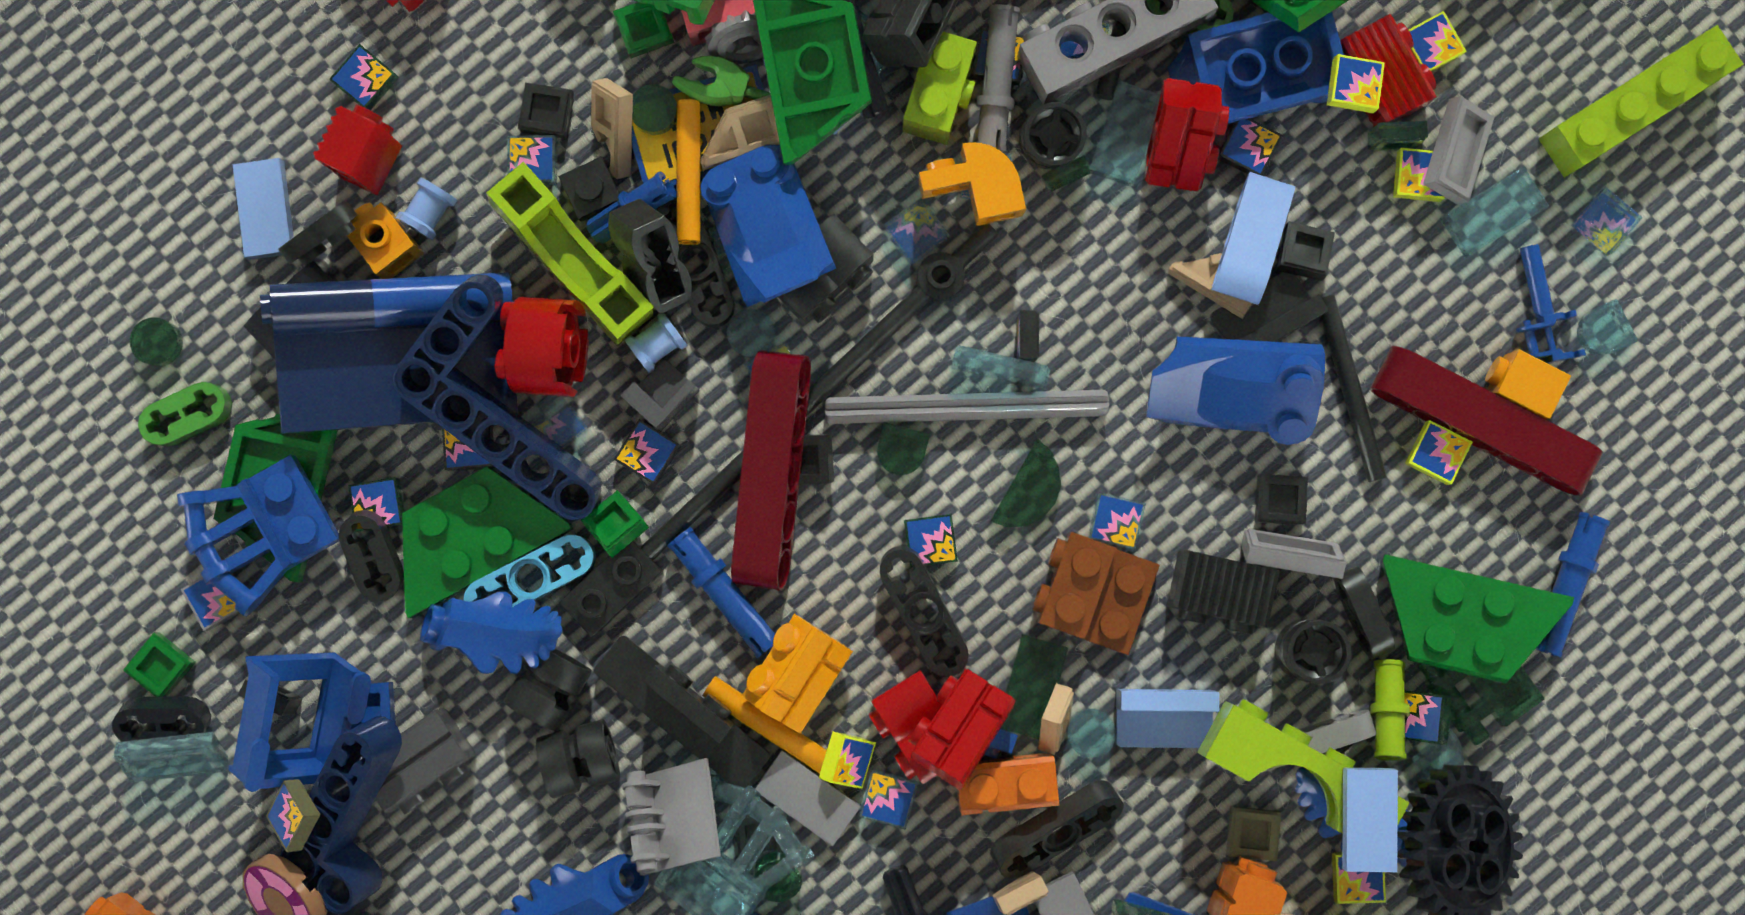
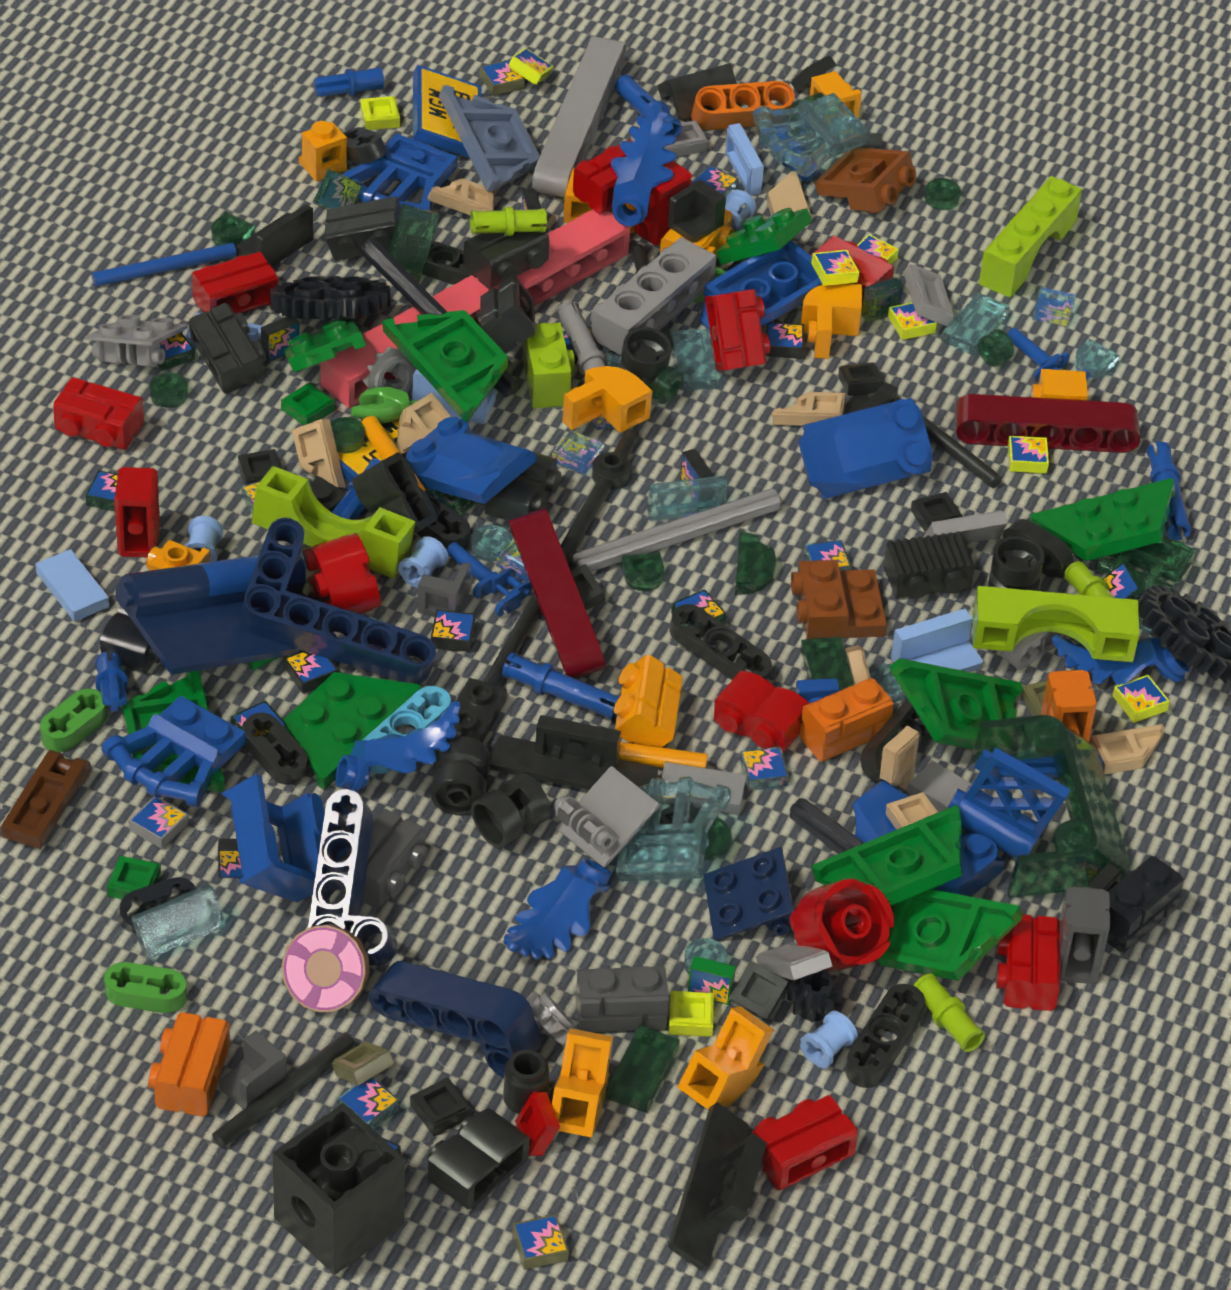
camera: 30 degrees left, 40 degrees down
(107, 520) = (44, 799): none -> reddish brown plate
(116, 810) = (145, 987): none -> bright green beam
(156, 341) = (26, 686): clear green tile -> none
(237, 387) = (111, 680): none -> blue axle
(292, 815) = (311, 883): tile -> none
(331, 226) = (141, 552): pearl dark grey plate -> none
(614, 524) = (454, 671): green tile -> none
(720, 385) = (491, 581): none -> blue piece
(847, 760) = (718, 748): tile -> none
(961, 728) = (792, 671): red brick -> none
(1139, 830) = (955, 700): none -> green wing
(1253, 238) = (820, 371): light blue beam -> none
(1324, 130) = (831, 312): none -> light orange brick
(1370, 819) = (1116, 611): light blue tile -> none
(1493, 270) = (995, 347): none -> clear green bush

